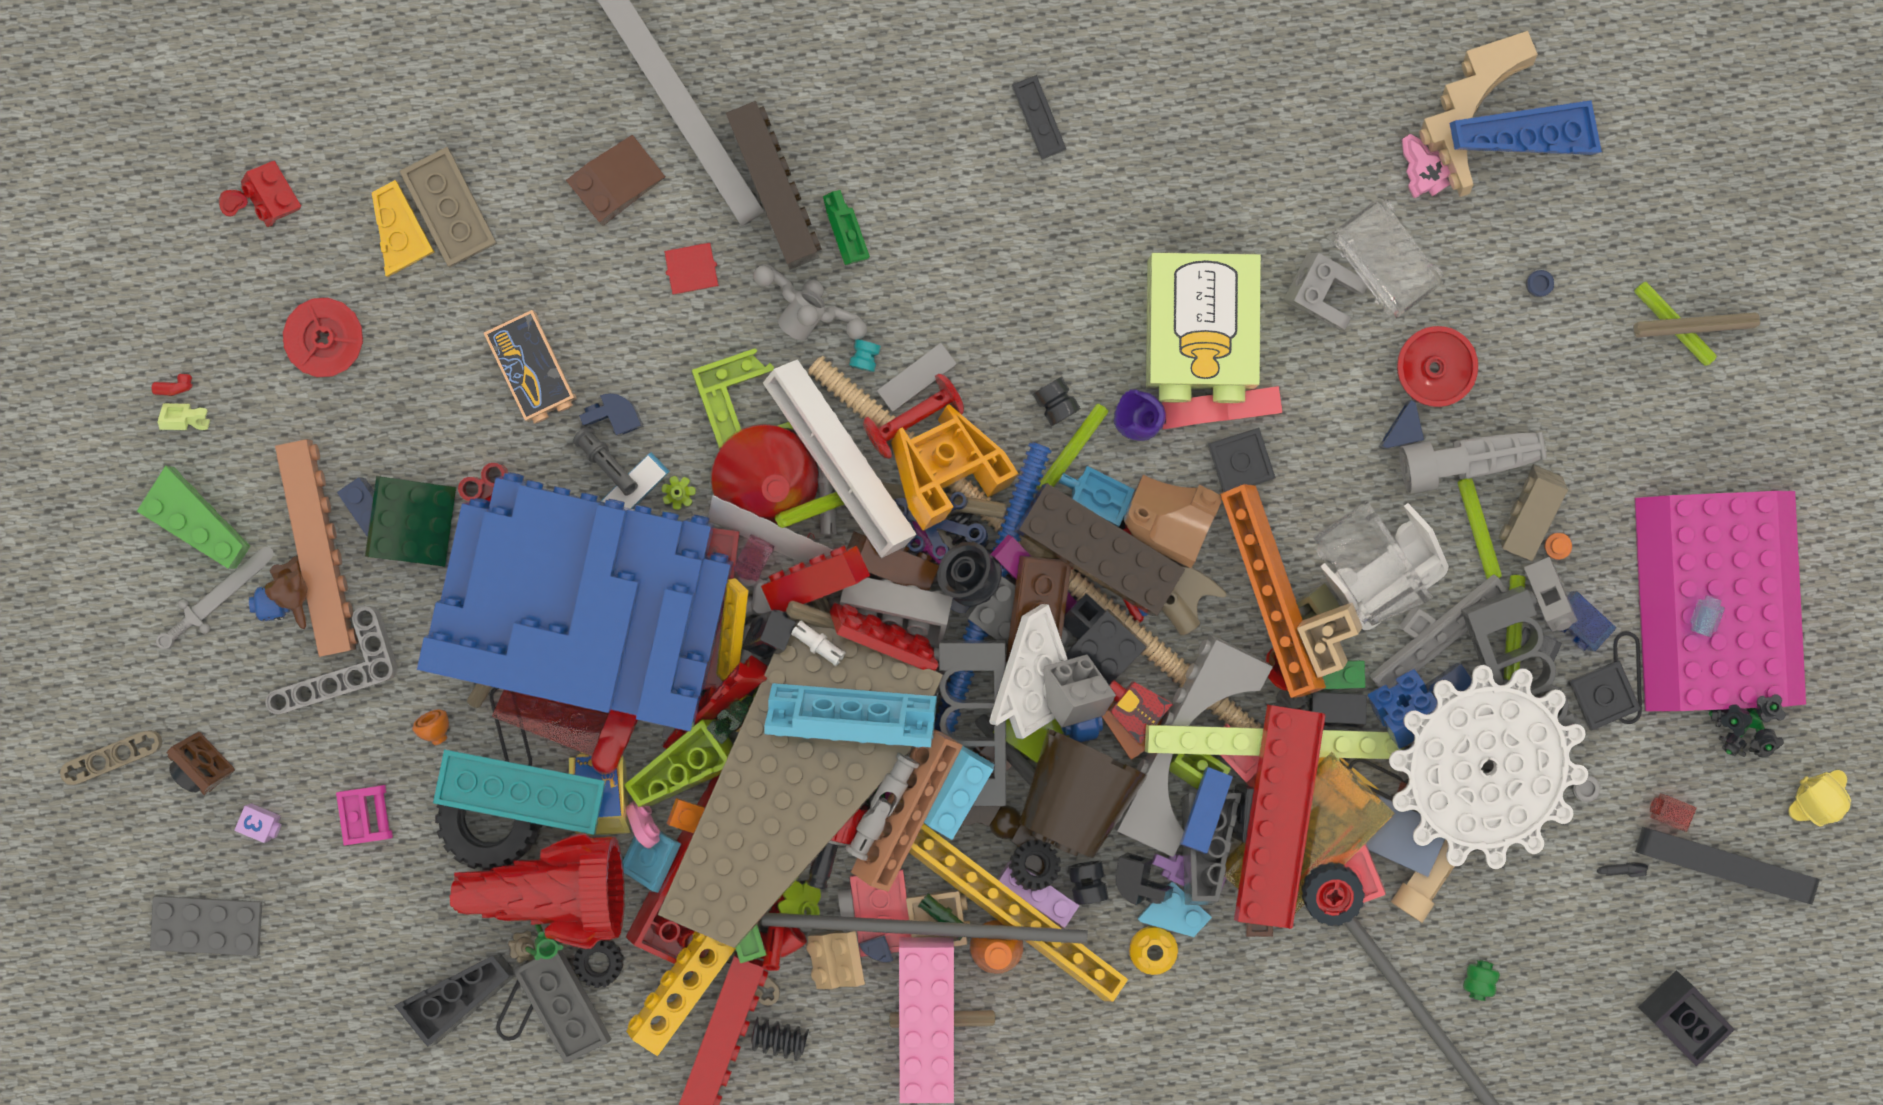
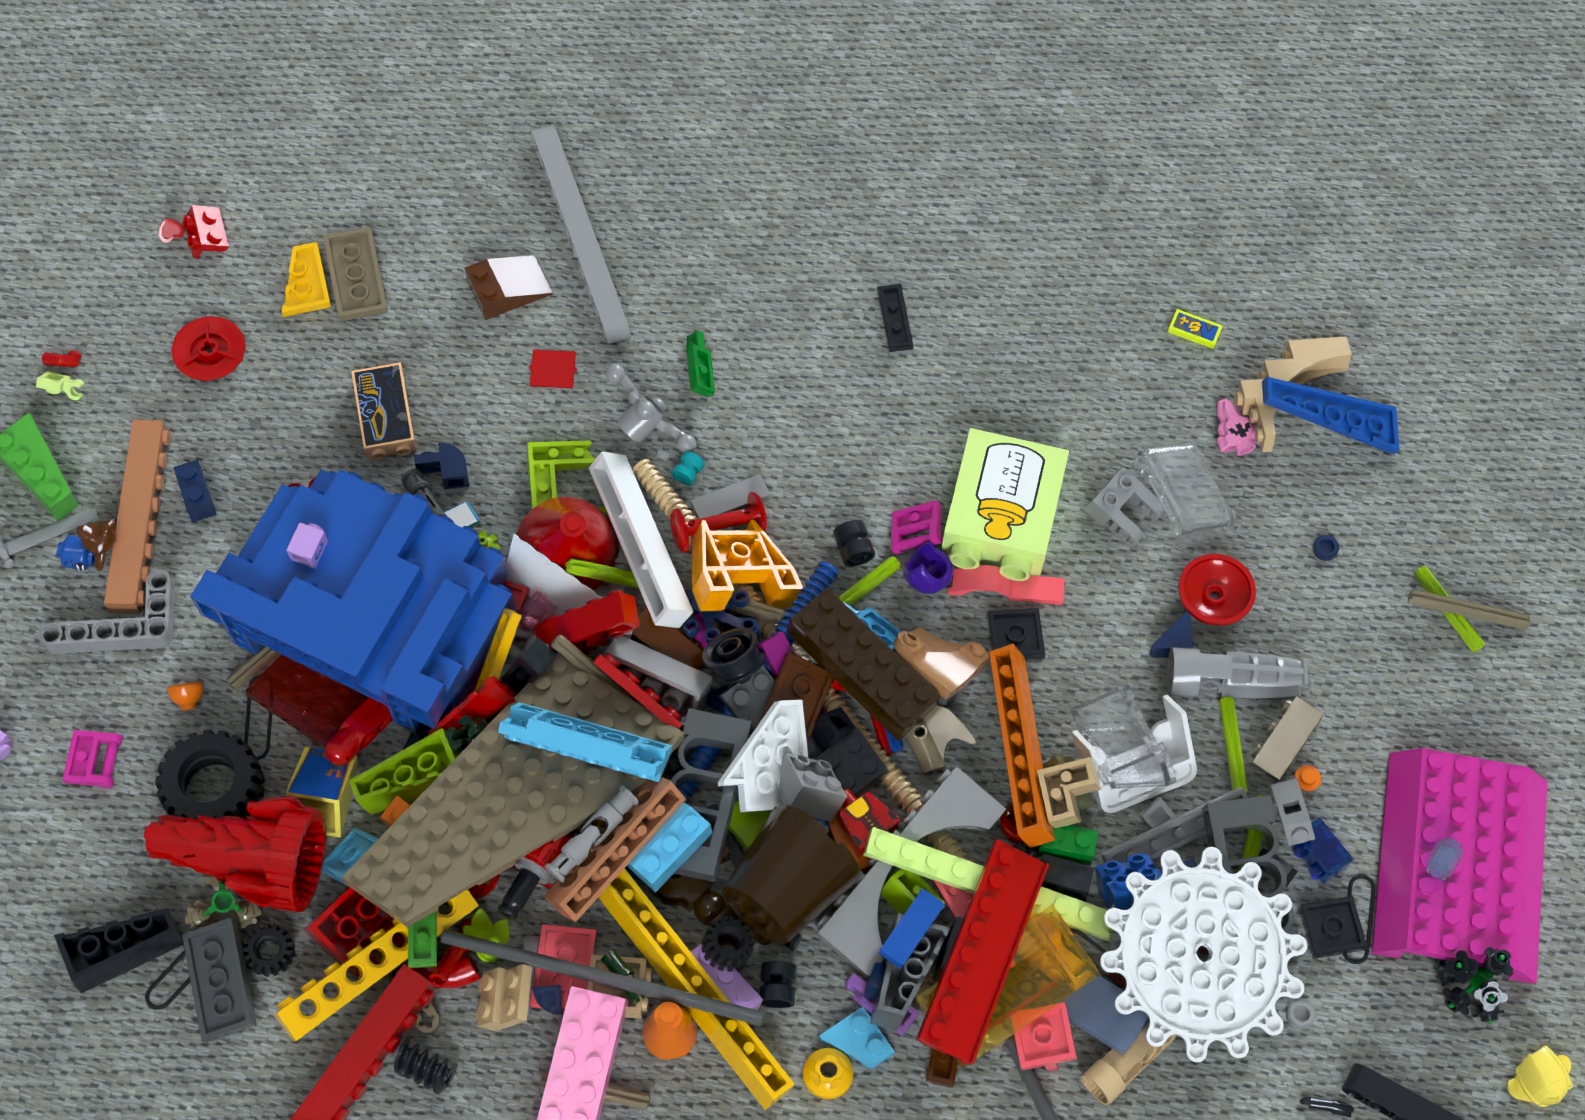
camera: 10 degrees right, 25 degrees down
(410, 521) = (227, 505): dark green plate -> none
(514, 580) = (307, 545): none -> lavender brick
(519, 792) = (247, 752): teal plate -> none
(643, 824) = (355, 821): bright pink plate -> none
(772, 185) = (646, 312): dark brown brick -> none
(818, 643) = (573, 677): white pin -> none
(1115, 360) = (915, 520): none -> dark pink plate
(1134, 881) = (824, 993): black brick -> none
(1180, 868) = (875, 981): none -> dark blue tile
(1323, 882) = (1008, 1049): black wheel -> none
(1362, 52) = (1195, 329): none -> tile
(1672, 812) = (1385, 1055): clear red brick -> none

